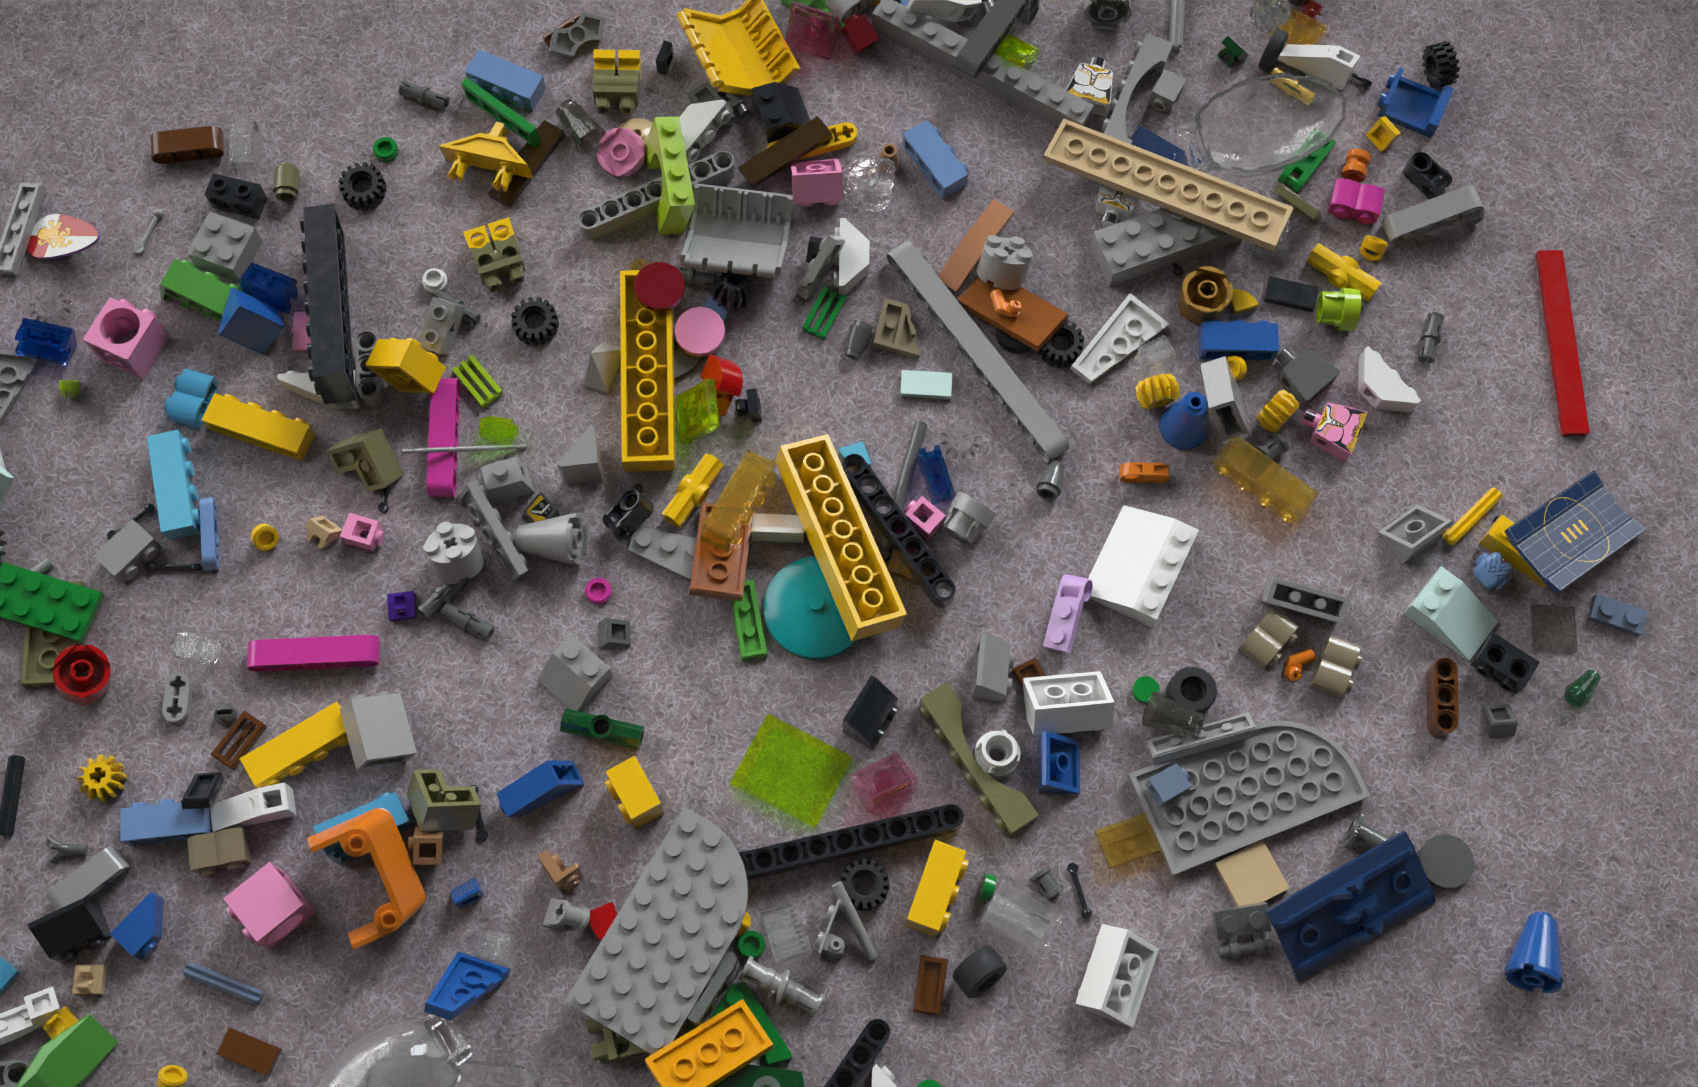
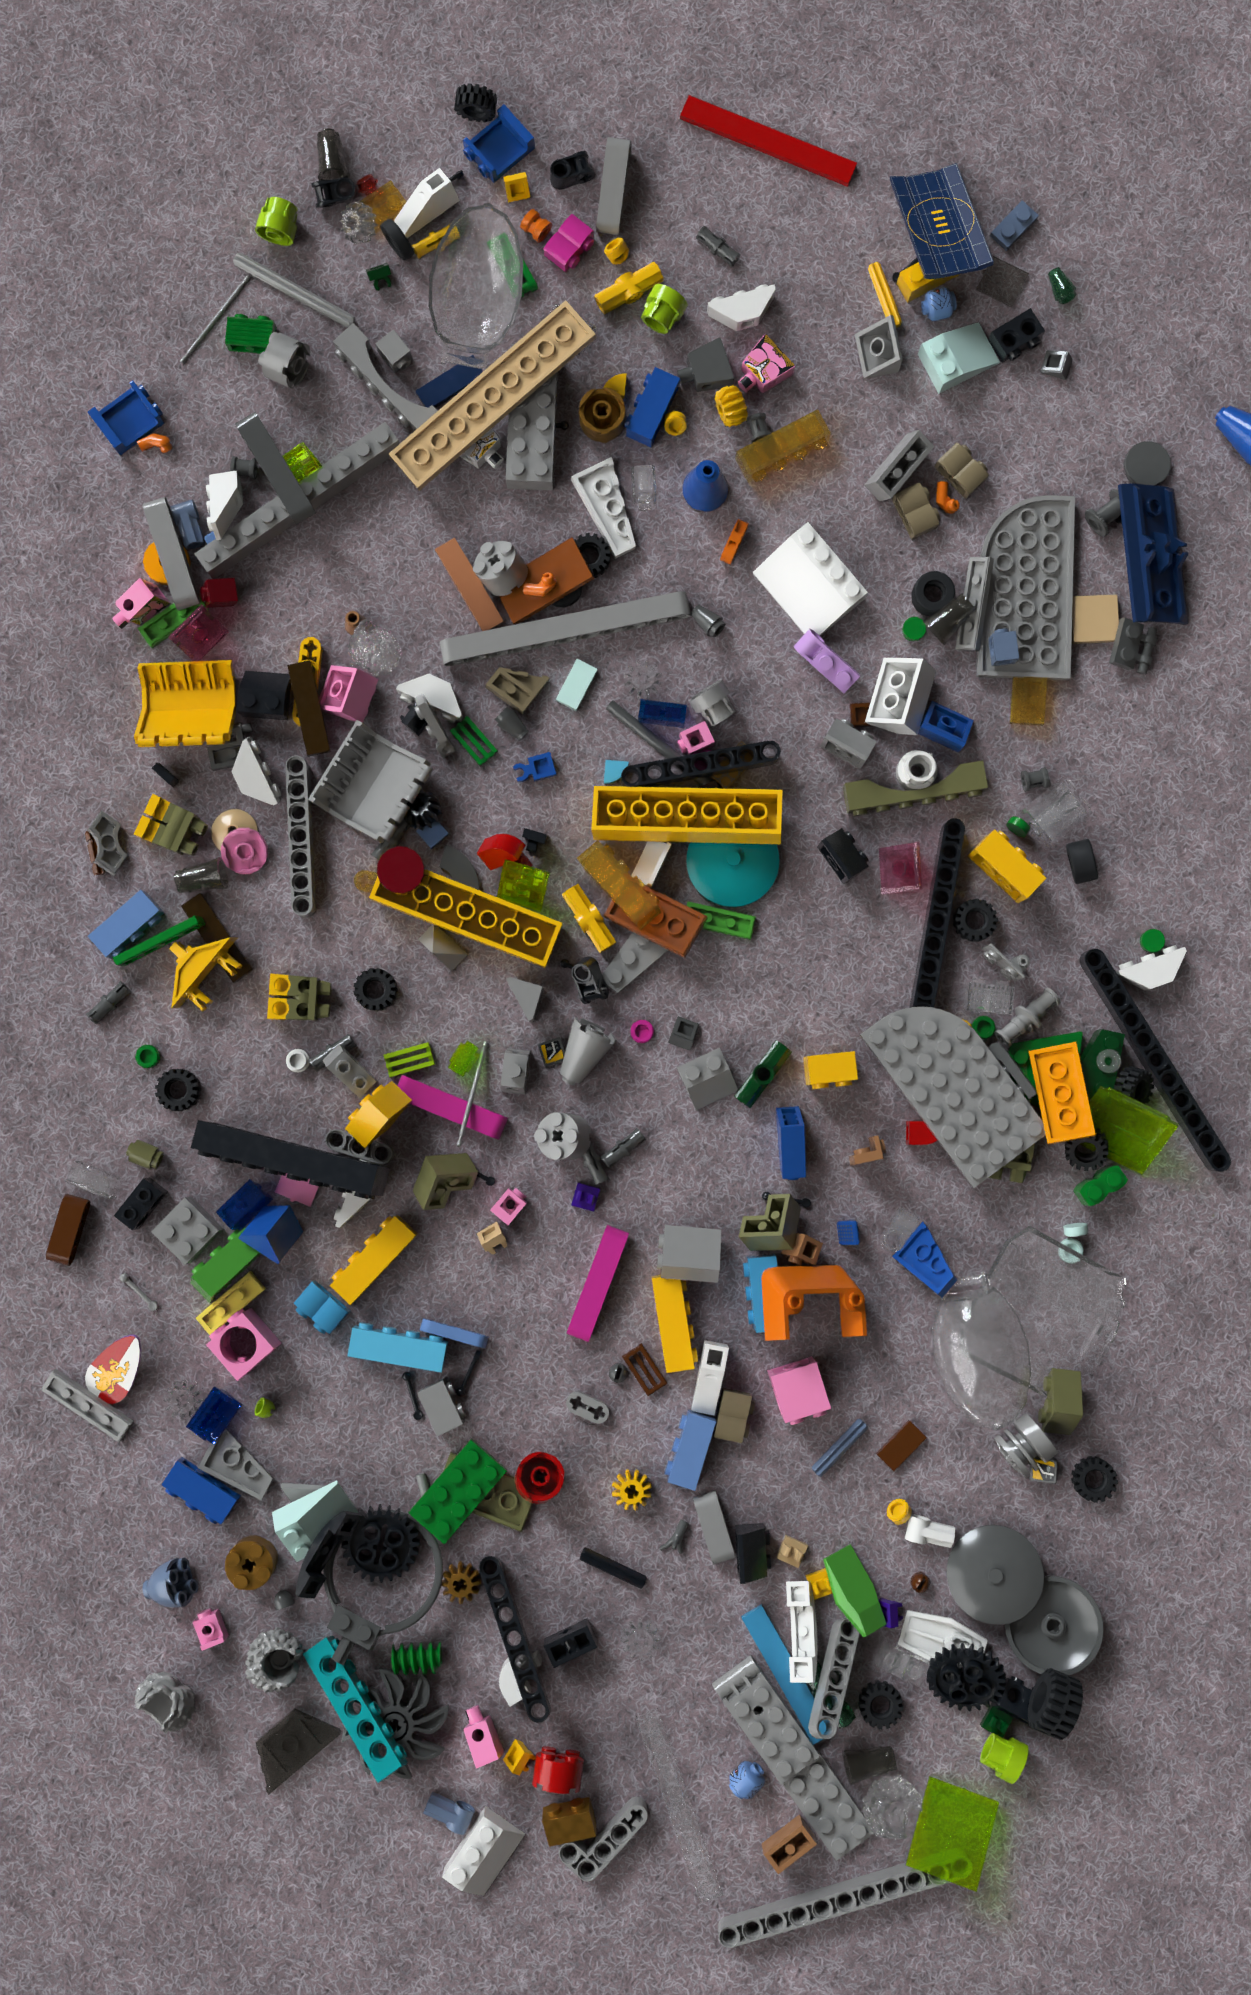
camera: 65 degrees left, 15 degrees up
(141, 927) = (770, 1497): blue slope -> none
(170, 316) = (230, 1302): none -> light yellow tile
(197, 648) = (555, 1376): clear gear -> none
(202, 790) = (680, 1411): black tile -> none
(264, 537) = (477, 1288): yellow tile -> none
(492, 530) = (554, 1097): light grey wing -> none
(565, 916) = (903, 1161): light grey piece -> none
(667, 152) = (264, 807): lime arch -> none
(700, 331) = (448, 853): bright pink tile -> none
(791, 770) = (858, 938): clear neon green piece -> none
(825, 381) = (539, 766): none -> blue plate
(854, 921) = (1001, 939): light grey bar -> none
(930, 985) = (1072, 903): reddish brown tile -> none
(935, 159) = (371, 581): medium blue brick -> none
(1072, 868) = (1029, 753): black hinge -> none
(1093, 85) = (360, 413): torso -> none
(1117, 975) = (1126, 759): white slope -> none
(1157, 391) = (671, 496): yellow gear -> none
(1224, 398) = (705, 444): light grey brick -> none
(1291, 294) = (628, 341): black tile -> none
(1298, 203) = (553, 294): olive plate -> none
(1449, 688) = (1016, 389): reddish brown beam -> none

